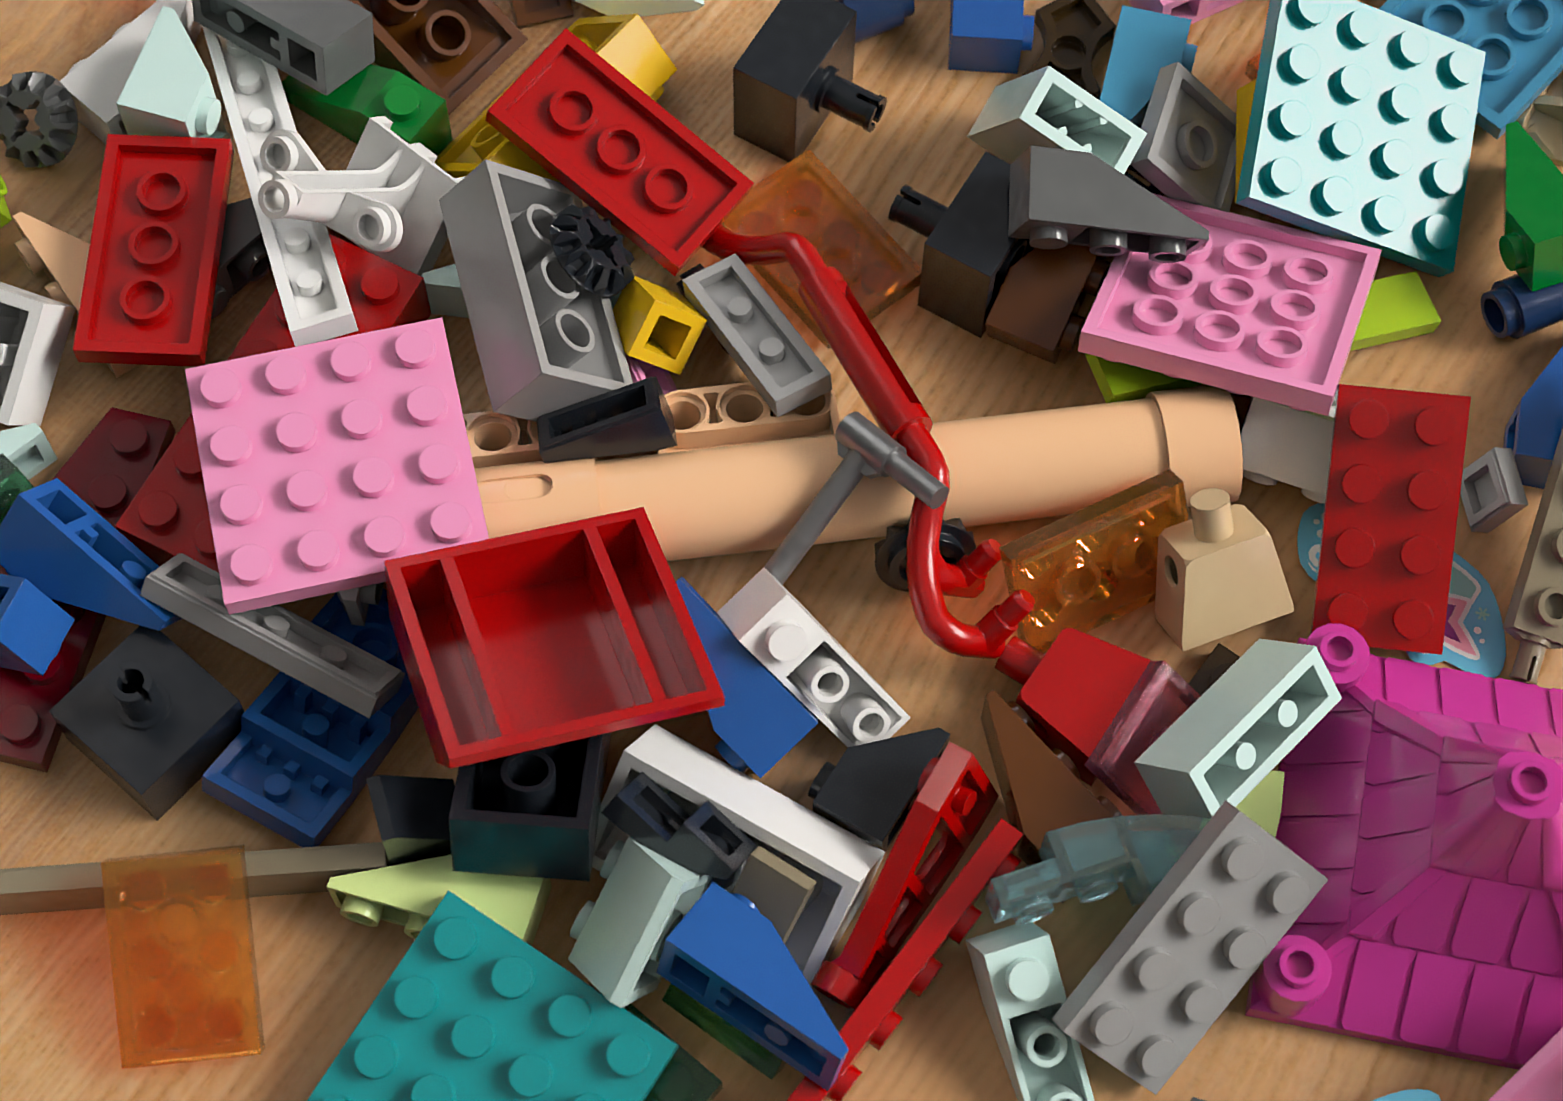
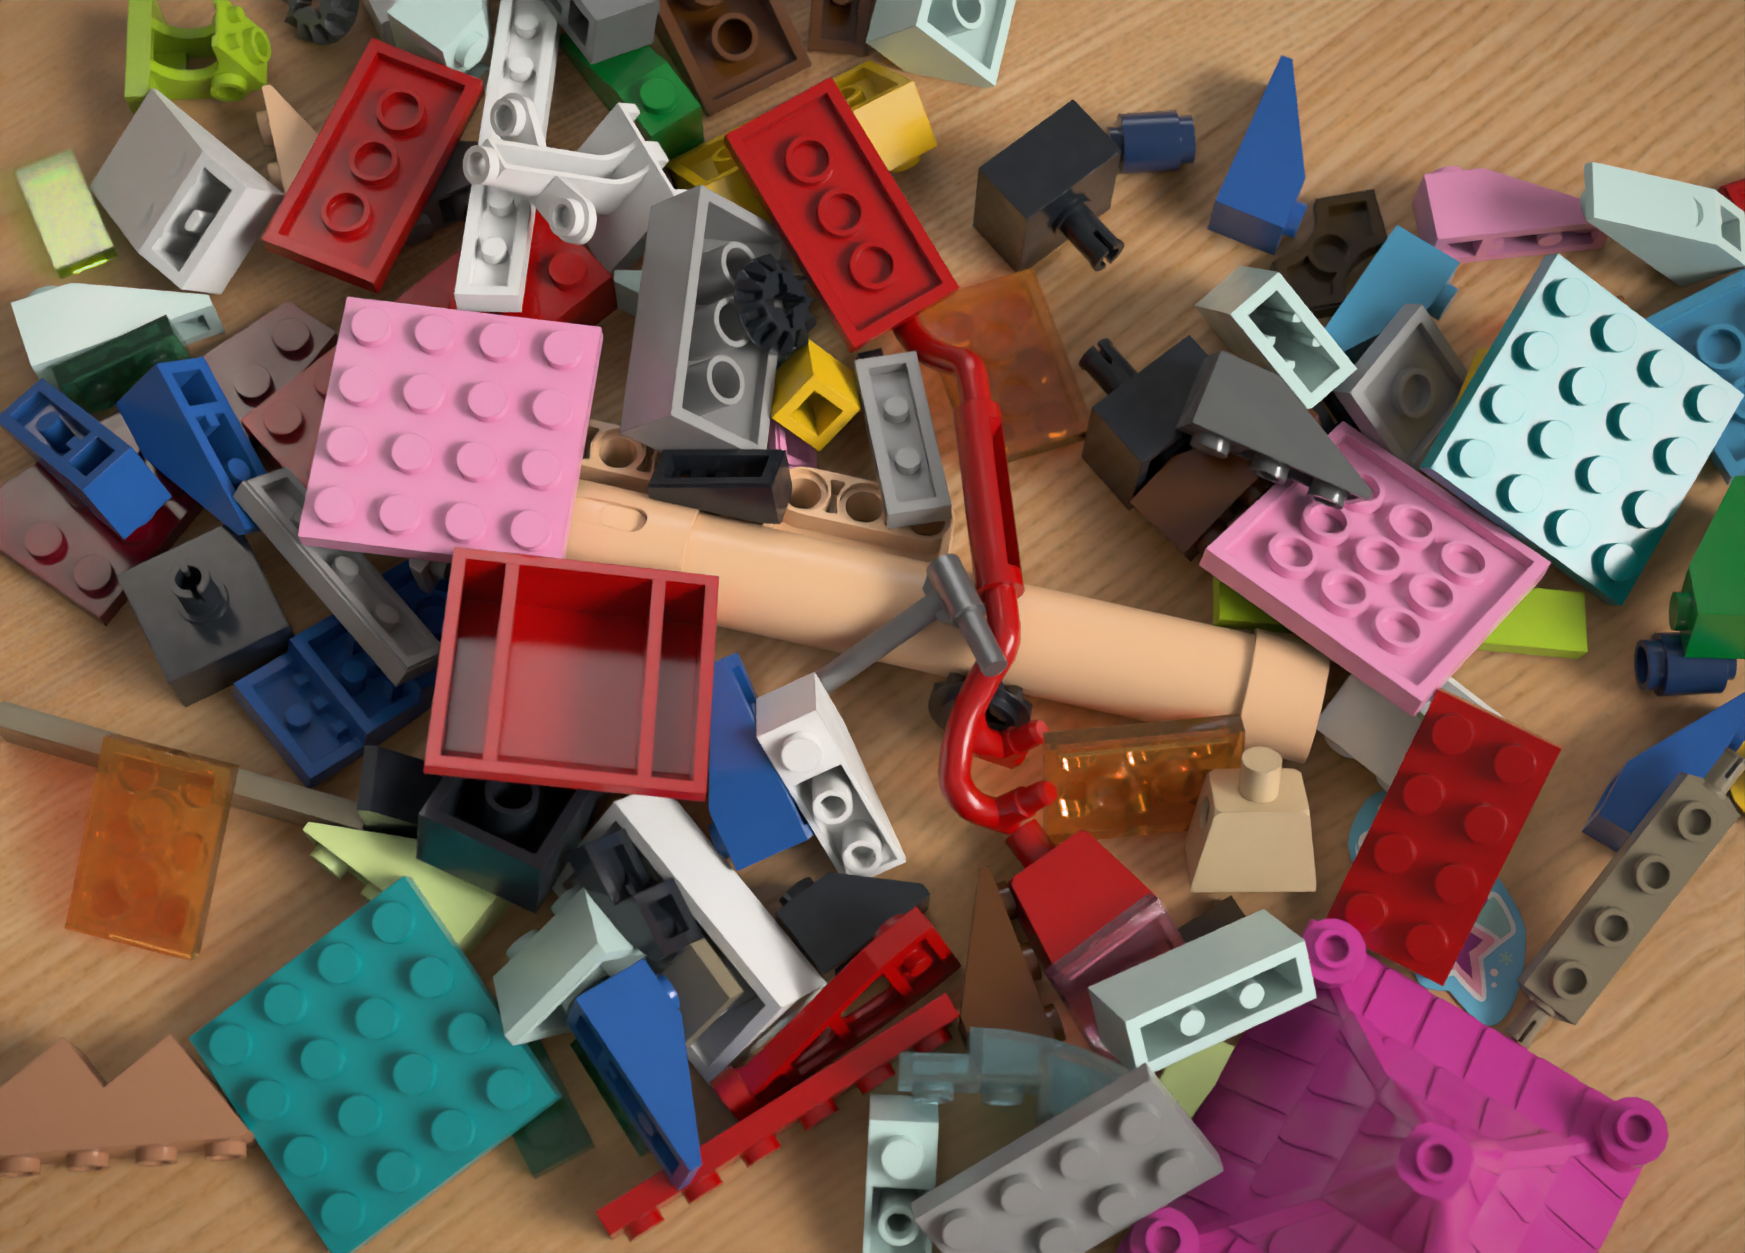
camera: 20 degrees right, 5 degrees up
(1492, 490) = (1562, 840): light grey tile -> none

